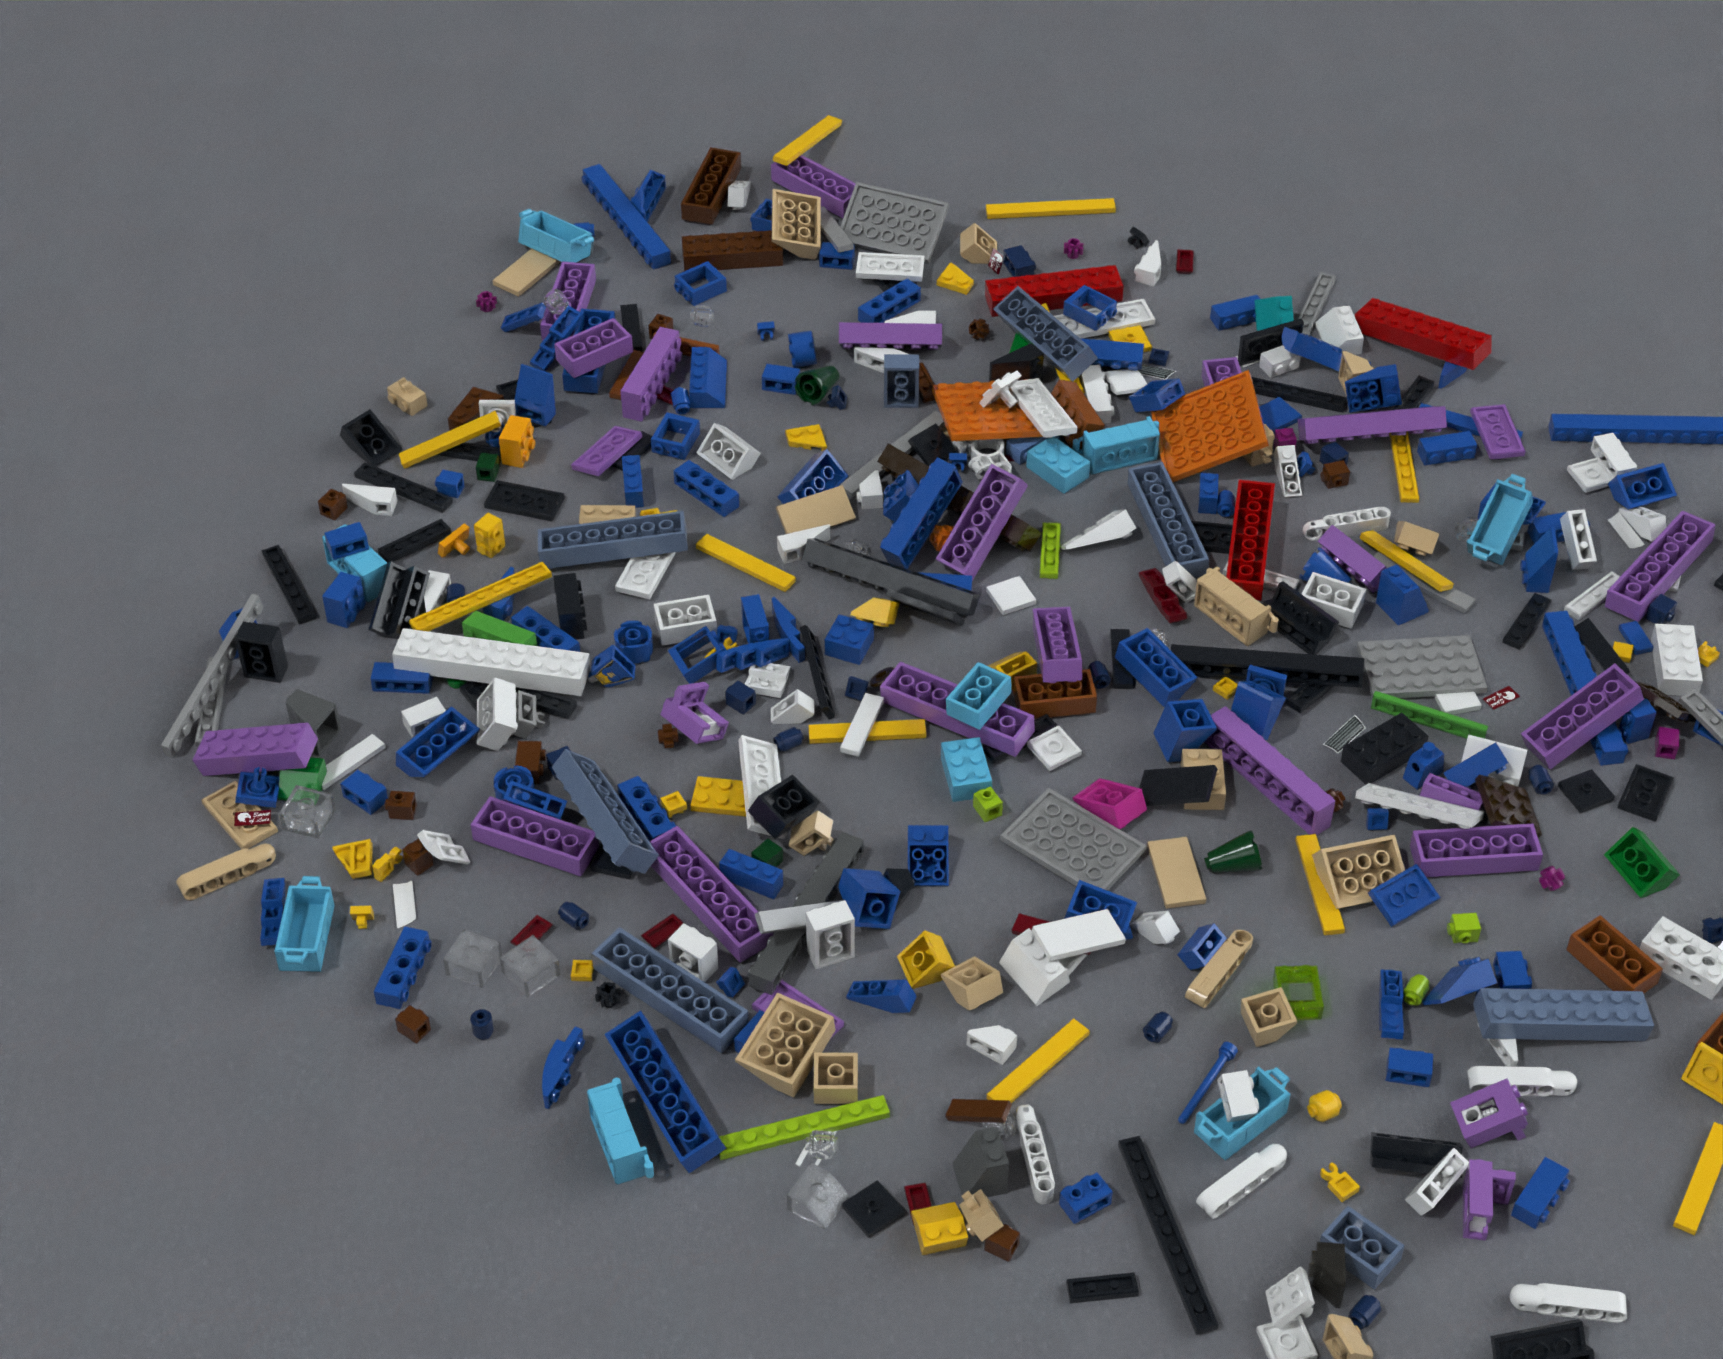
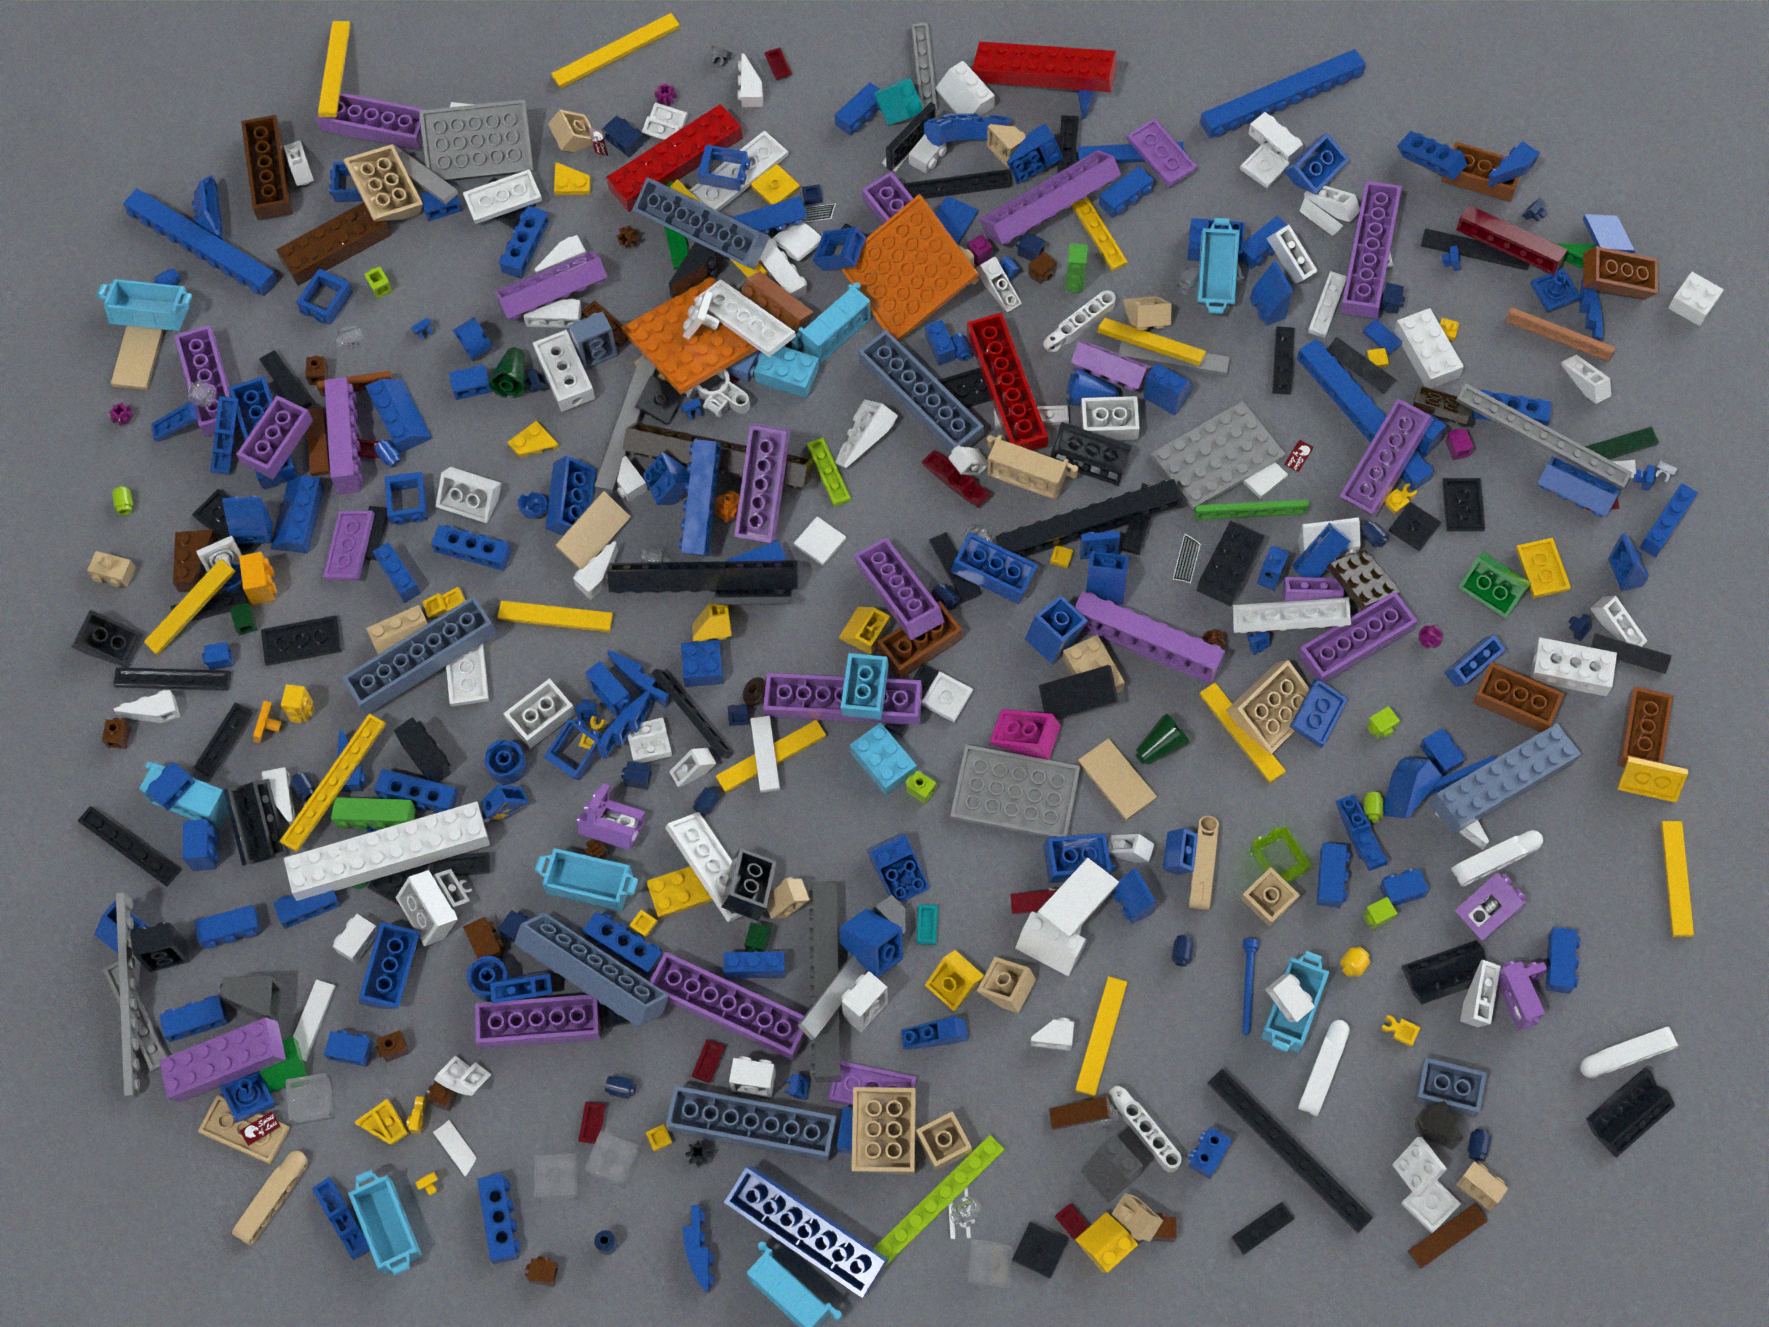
camera: 25 degrees left, 20 degrees up
(246, 715) = (193, 1018): none -> blue brick
(327, 667) = (228, 927): none -> blue brick
(447, 357) = (122, 500): none -> lime brick
(582, 416) = (298, 514): none -> blue slope
(645, 750) = (587, 879): none -> medium azure container
(750, 289) = (378, 282): none -> lime brick
(776, 479) = (532, 505): none -> blue hair
(864, 379) = (563, 370): none -> white brick
(928, 911) = (927, 924): none -> teal tile
(1059, 262) = (664, 121): none -> white slope
(1135, 963) = (1134, 897): none -> blue slope
(1342, 1027) = (1332, 875): none -> blue brick
(1365, 478) = (1076, 267): none -> bright green brick
(1372, 1077) = (1379, 913): none -> lime brick
(1580, 764) = (1399, 500): none -> yellow plate
(1581, 912) = (1474, 660): none -> blue brick
(1700, 870) = (1543, 568): none -> yellow plate

